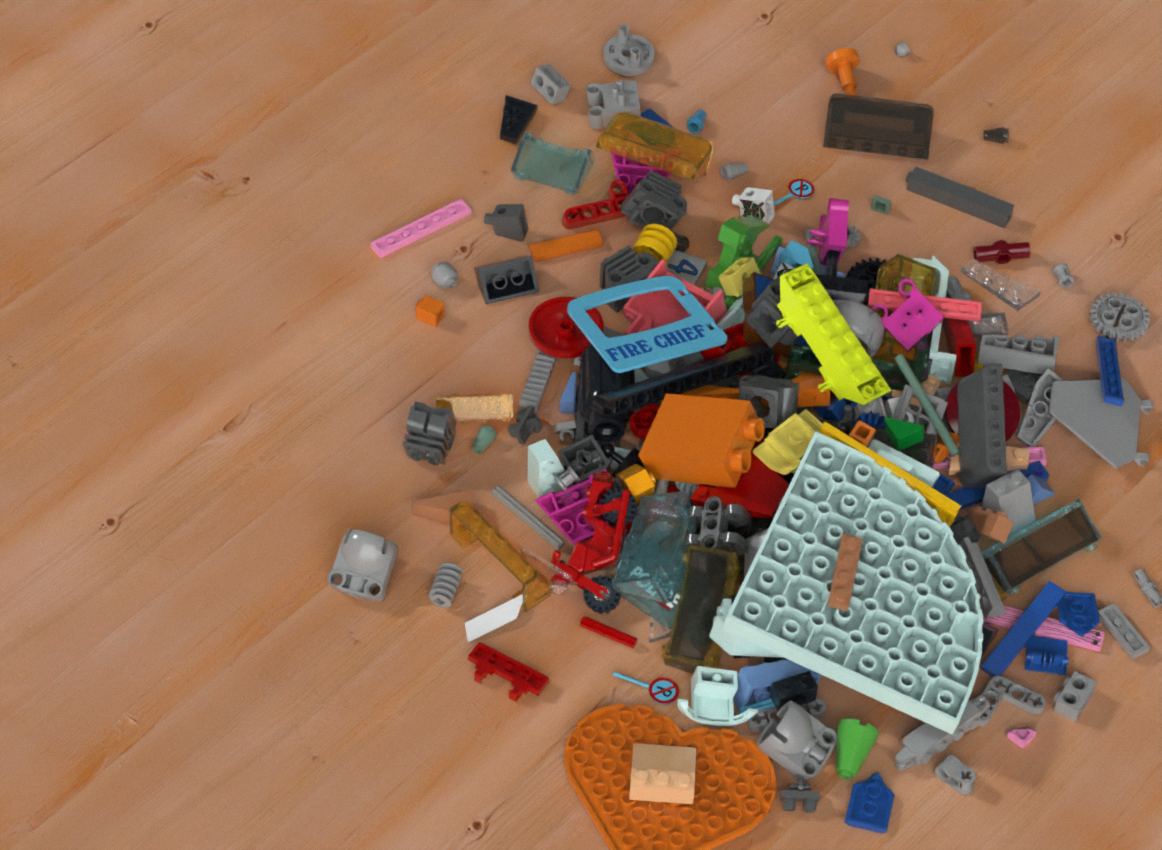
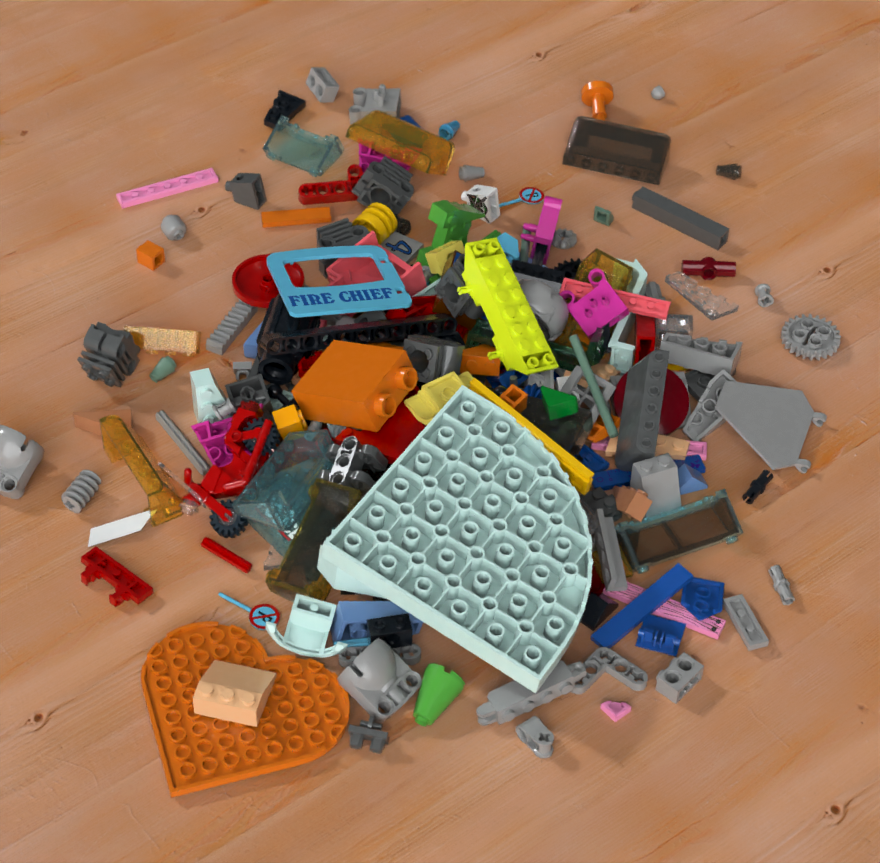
camera: 10 degrees right, 5 degrees down
(507, 279) = (230, 237): black slope -> none
(527, 424) = (207, 358): dark grey hips -> none
(631, 45) = (402, 69): light grey piece -> none
(844, 572) = (456, 518): nougat plate -> none
(870, 805) = (439, 754): blue tile -> none
(908, 464) = (552, 430): light aqua bracket -> none
(1103, 488) = (757, 486): none -> black pin
(1109, 371) = (786, 381): blue tile -> none

